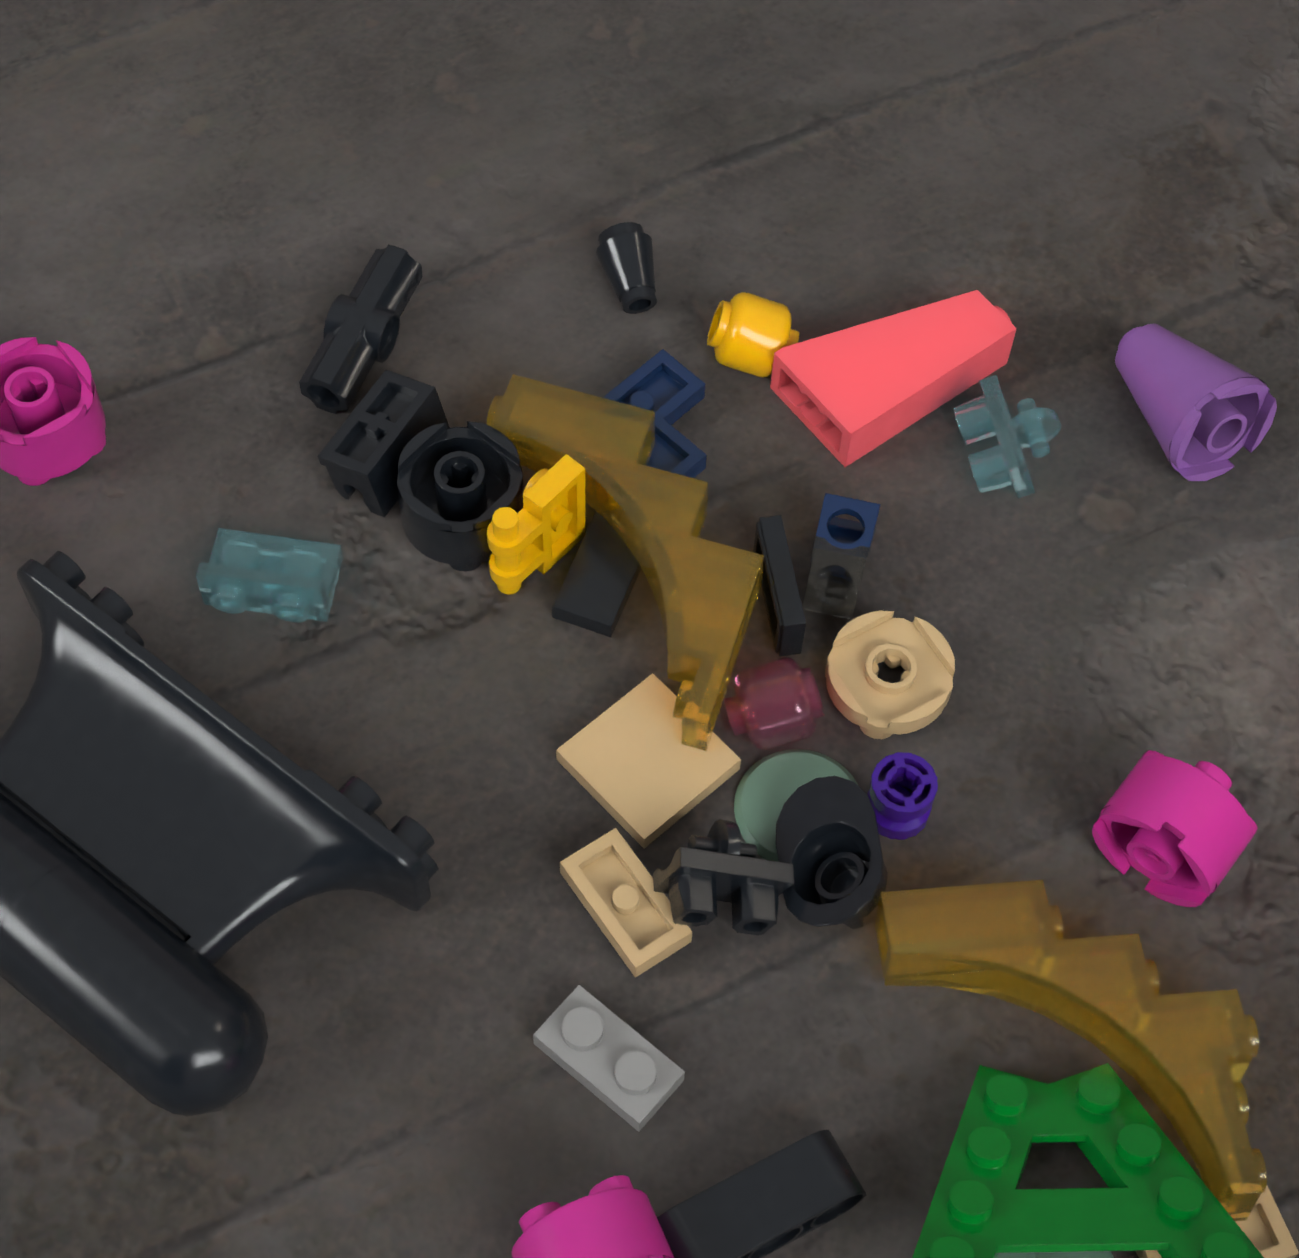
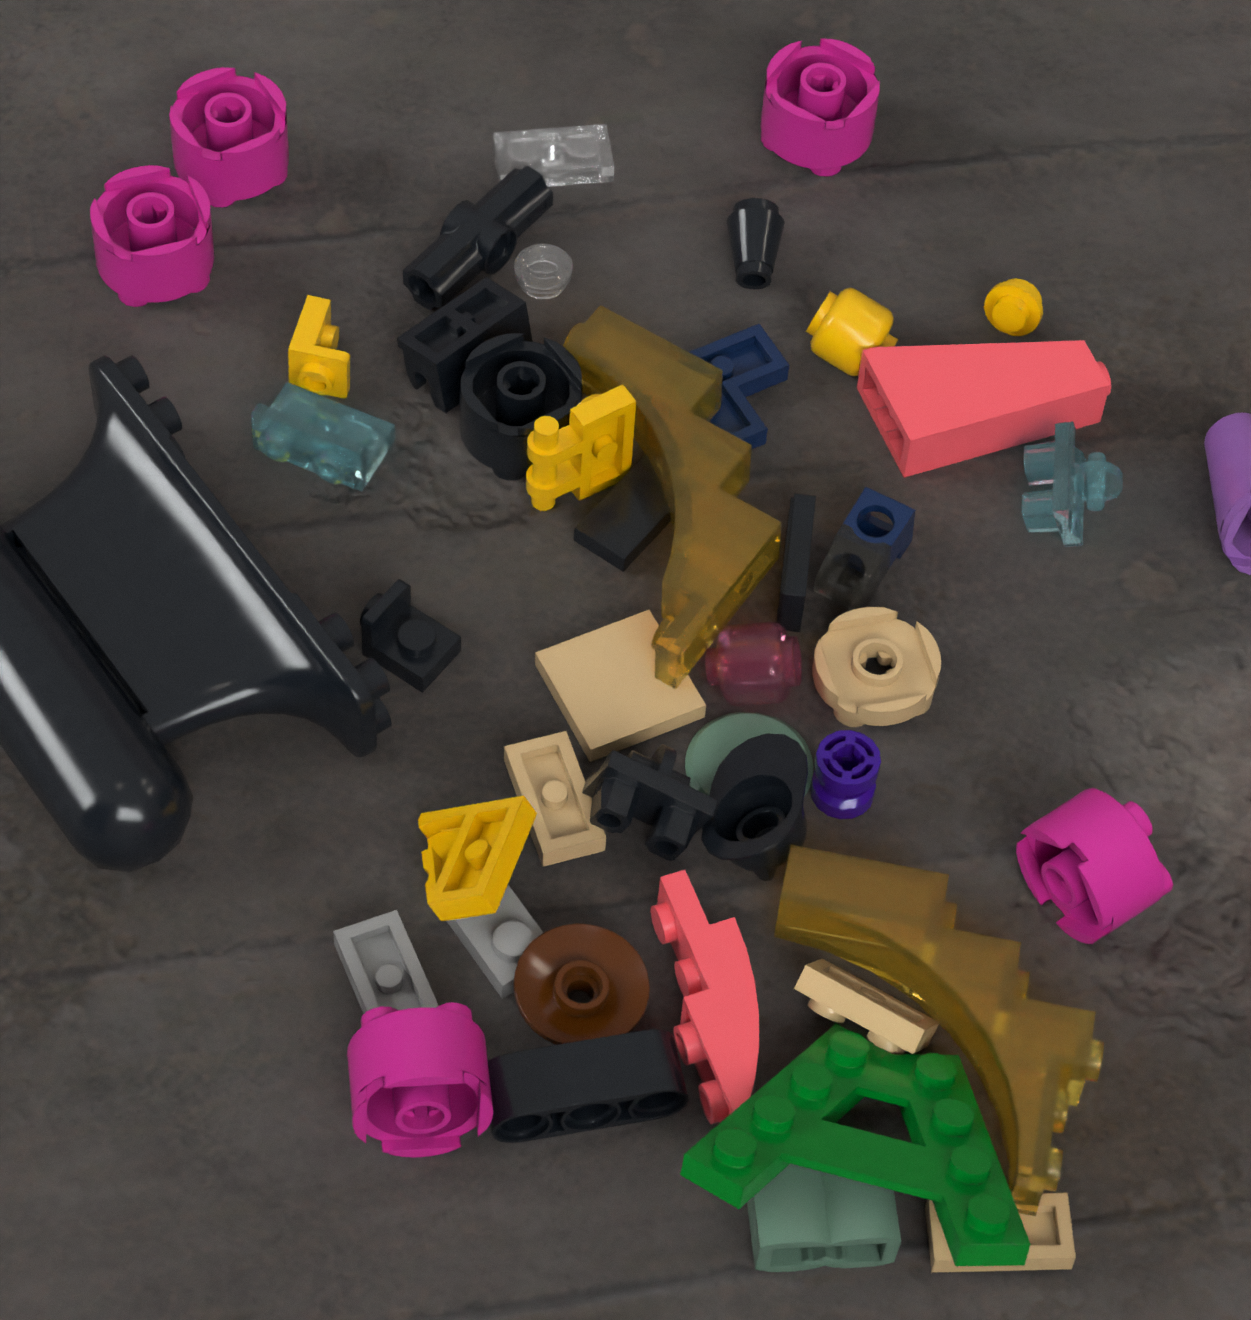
camera: 15 degrees right, 5 degrees down
(83, 284) = (230, 134): none -> dark pink brick
(236, 496) = (313, 352): none -> yellow bracket
(410, 222) = (560, 154): none -> clear plate
(423, 769) = (406, 638): none -> black bracket
(434, 345) = (543, 270): none -> clear plate
(521, 1148) = (383, 964): none -> light grey plate
(570, 996) = (473, 854): none -> yellow wing
(648, 114) = (819, 105): none -> dark pink brick
(726, 1070) = (584, 960): none -> reddish brown dish
(874, 1101) = (719, 997): none -> coral slope
(894, 270) = (1014, 307): none -> yellow plate
(1030, 1047) = (842, 996): none -> tan plate

